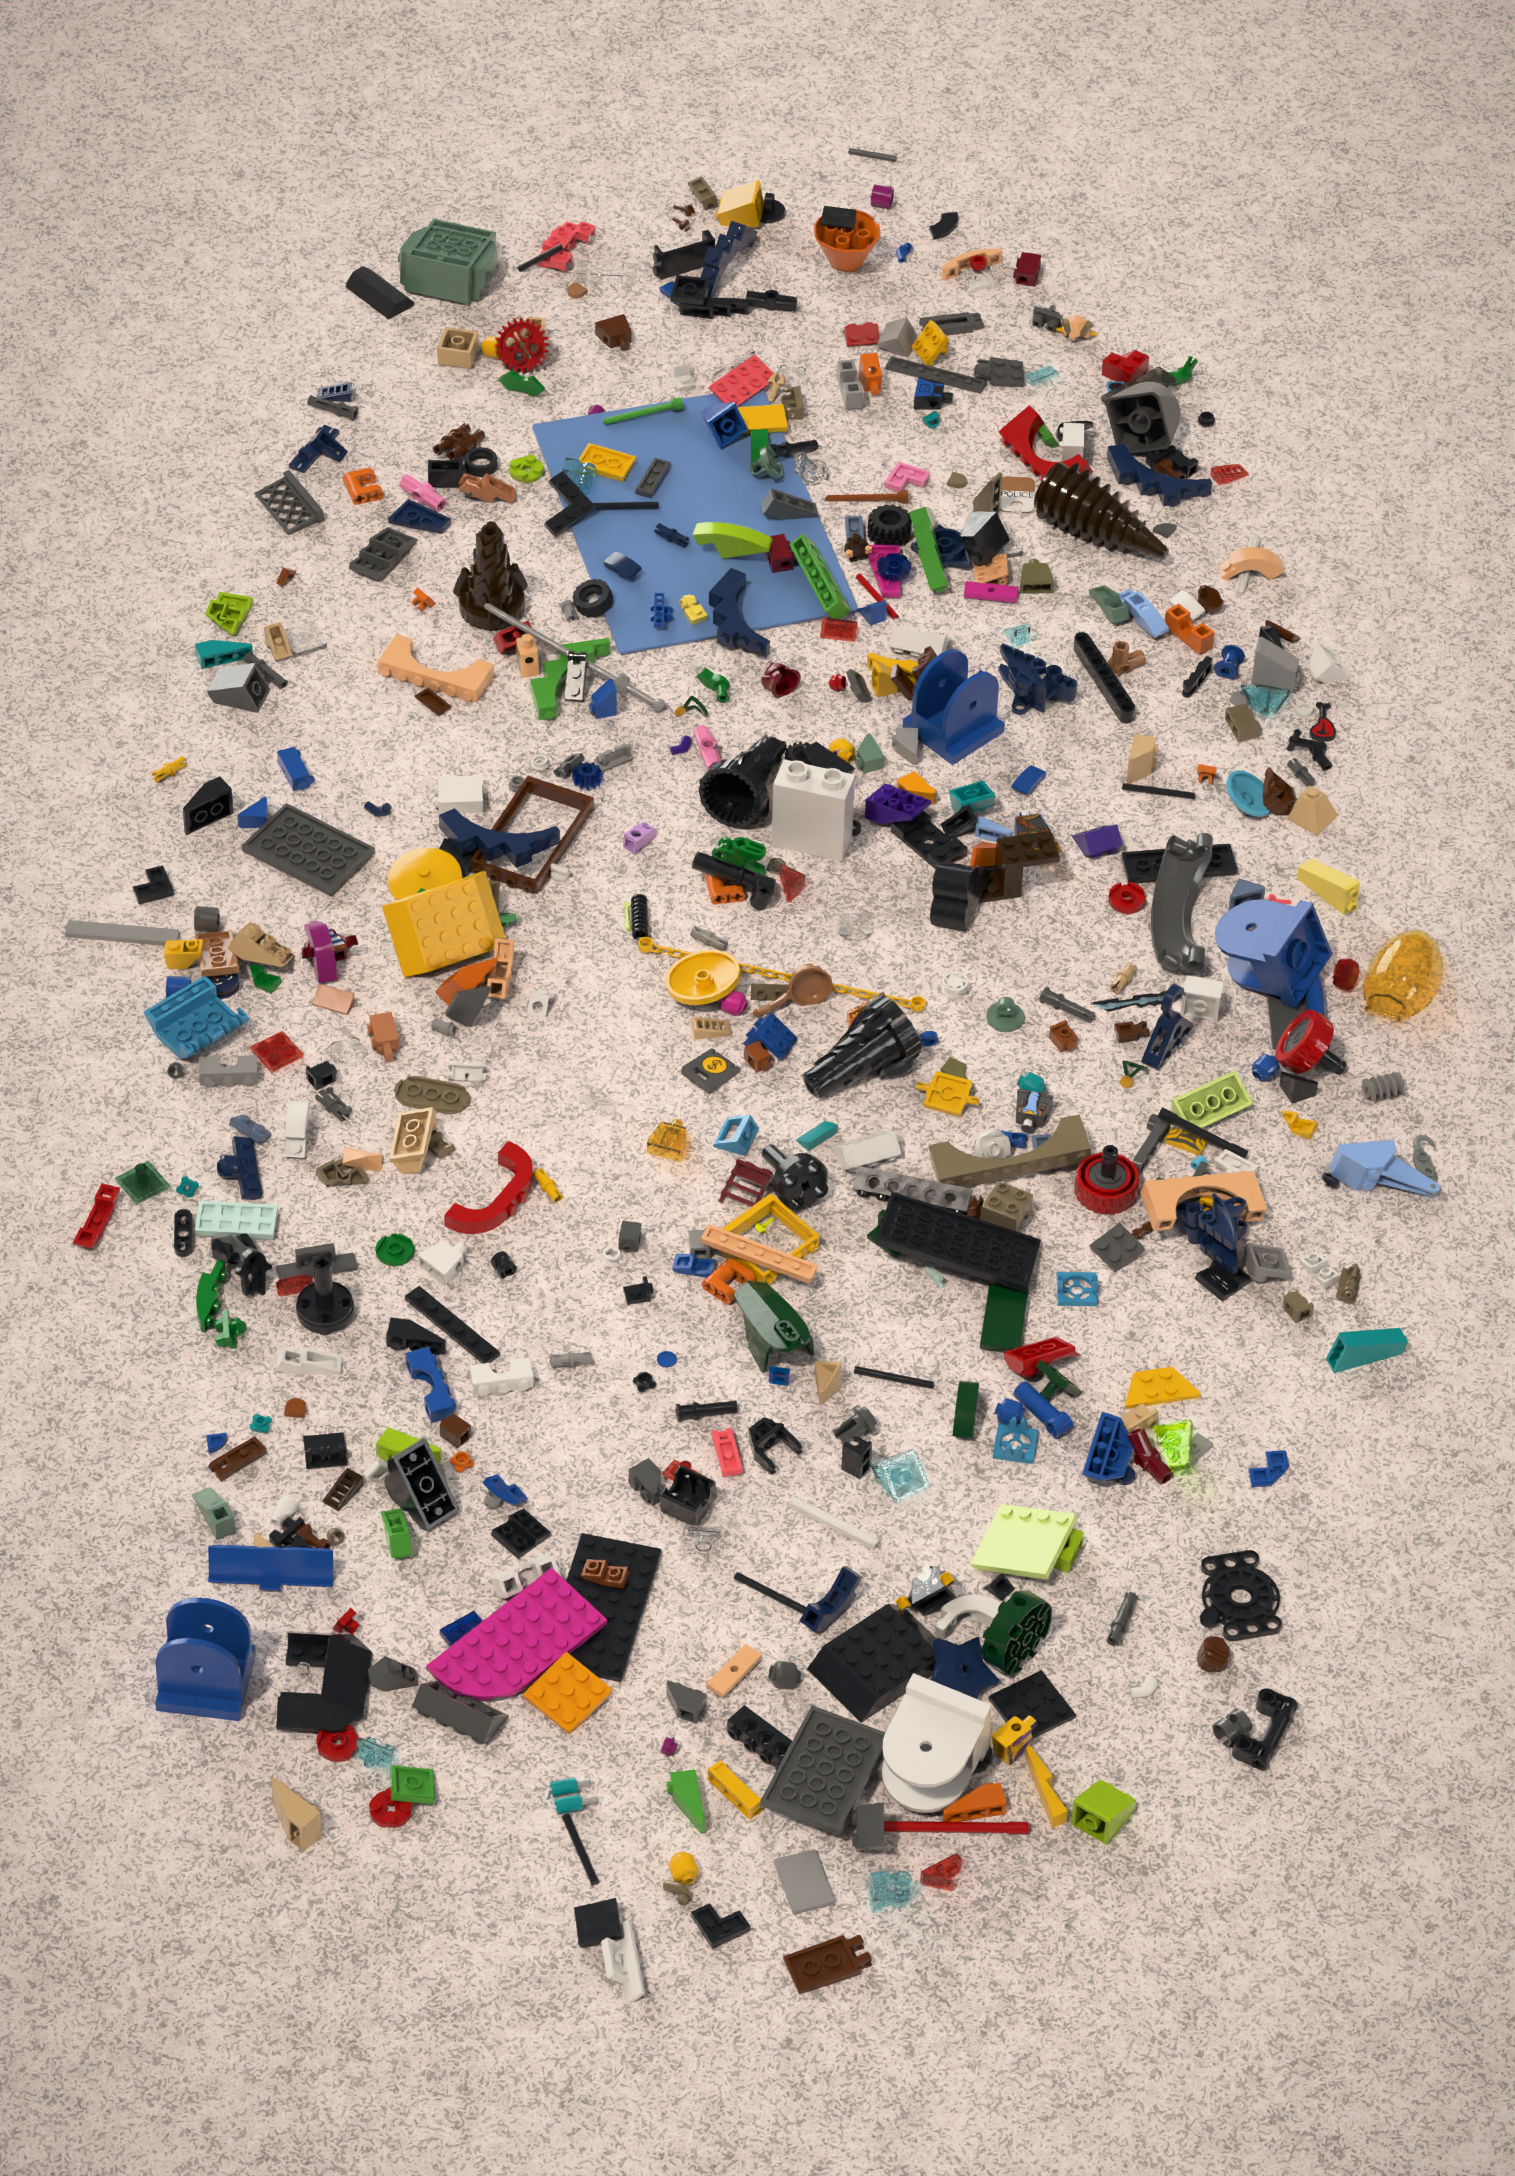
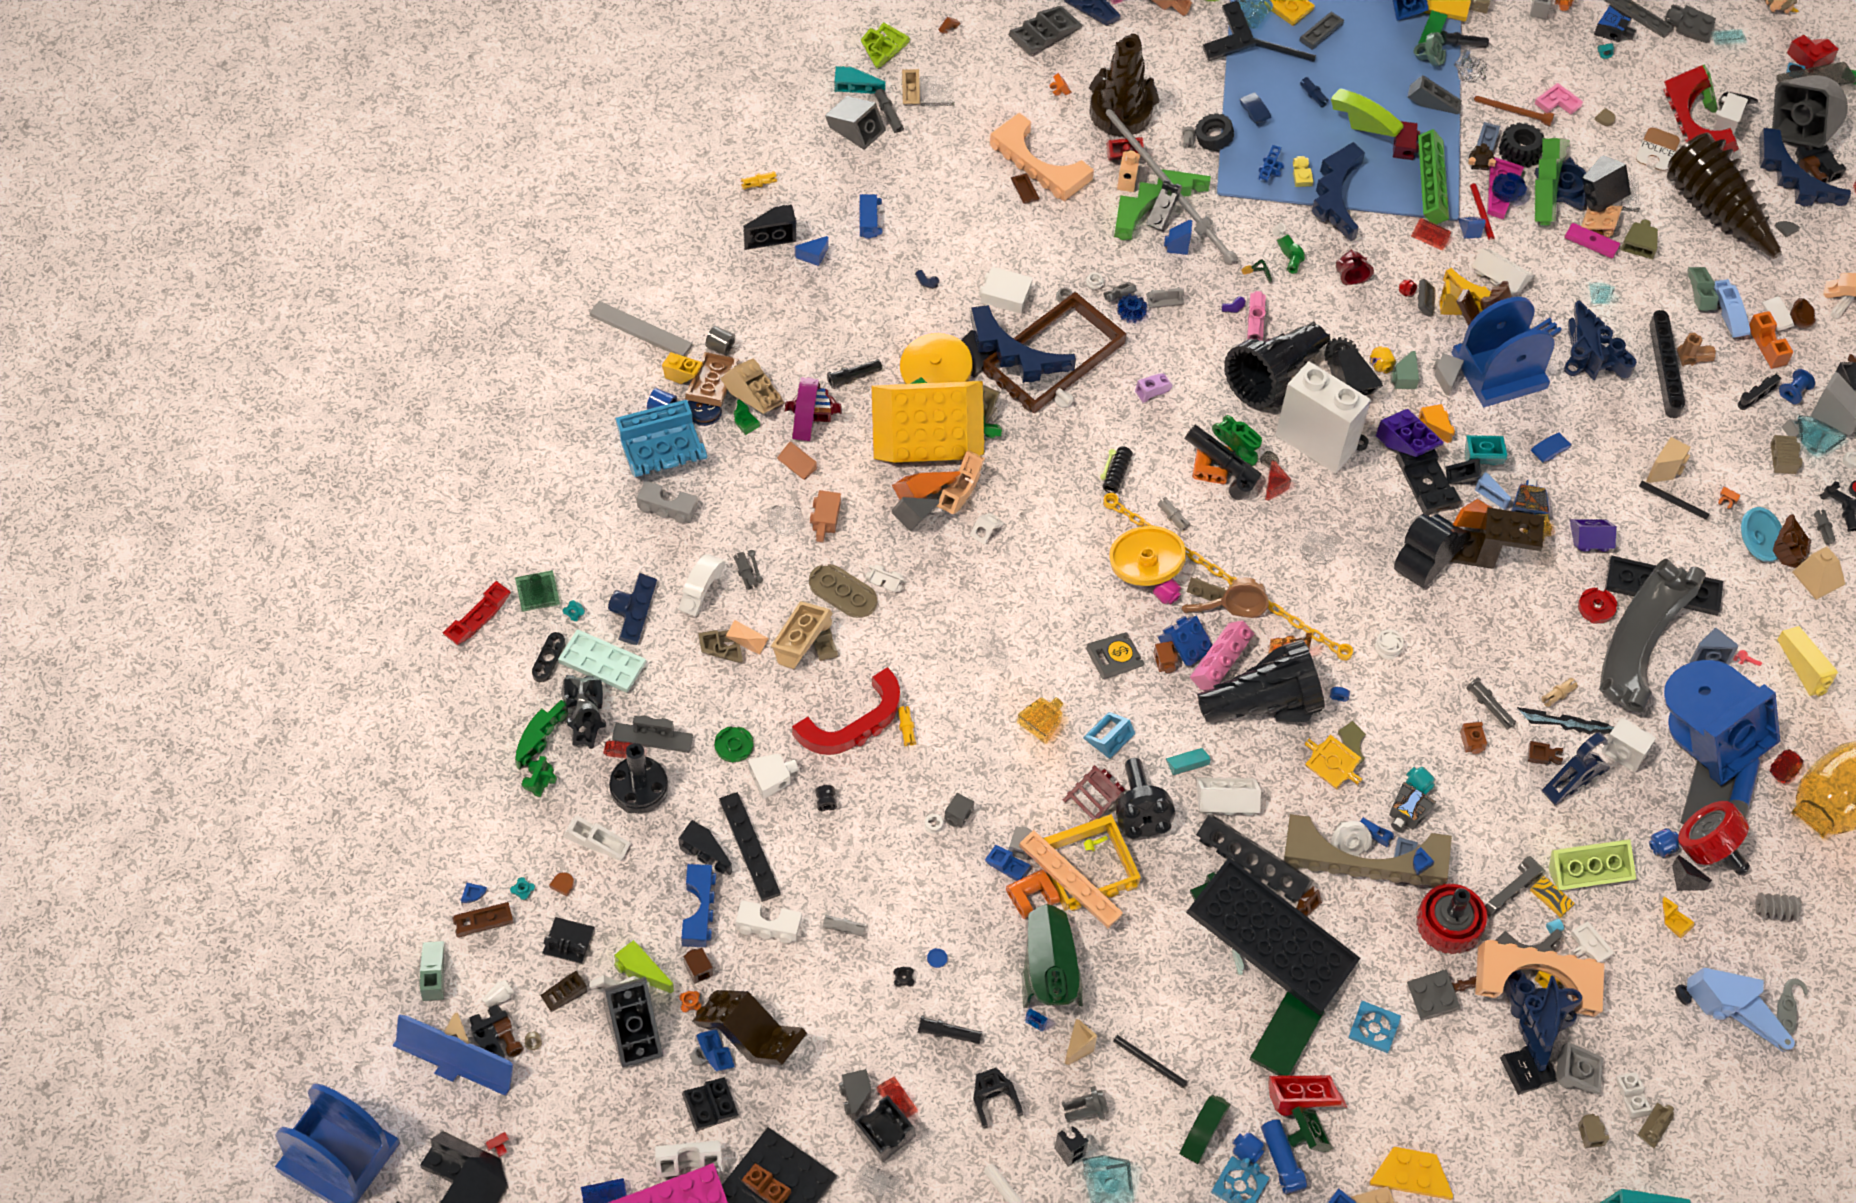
camera: 20 degrees right, 10 degrees up
(157, 888) = (693, 294): black plate -> none
(171, 1070) = (618, 483): dark grey hinge -> none
(251, 1129) = (659, 569): sand blue plate -> none
(276, 1052) = (721, 497): clear red plate -> none
(308, 849) = (845, 300): dark grey plate -> none
(321, 1075) = (749, 535): black brick -> none
(343, 913) = (845, 374): none -> black pin
(396, 1533) = (590, 1059): bright green slope -> none
(444, 1027) = (888, 526): light grey pin -> none
(528, 1457) = (749, 1027): none -> dark brown bracket
(638, 1293) = (941, 874): black bracket -> none
(701, 1032) = (1133, 615): tan slope -> none
(727, 1452) = (948, 1087): coral plate -> none
(809, 1038) = (1222, 655): none -> bright pink brick
(990, 497) = (1627, 147): dark tan slope -> none
(1005, 1015) = (1425, 694): sand green tile -> none
(1007, 1206) = (1338, 911): dark tan piece -> none
(1062, 1142) = (1421, 861): none -> blue tile
(1127, 1081) = (1519, 807): dark green piece -> none
(1174, 1119) = (1547, 871): black piece -> none

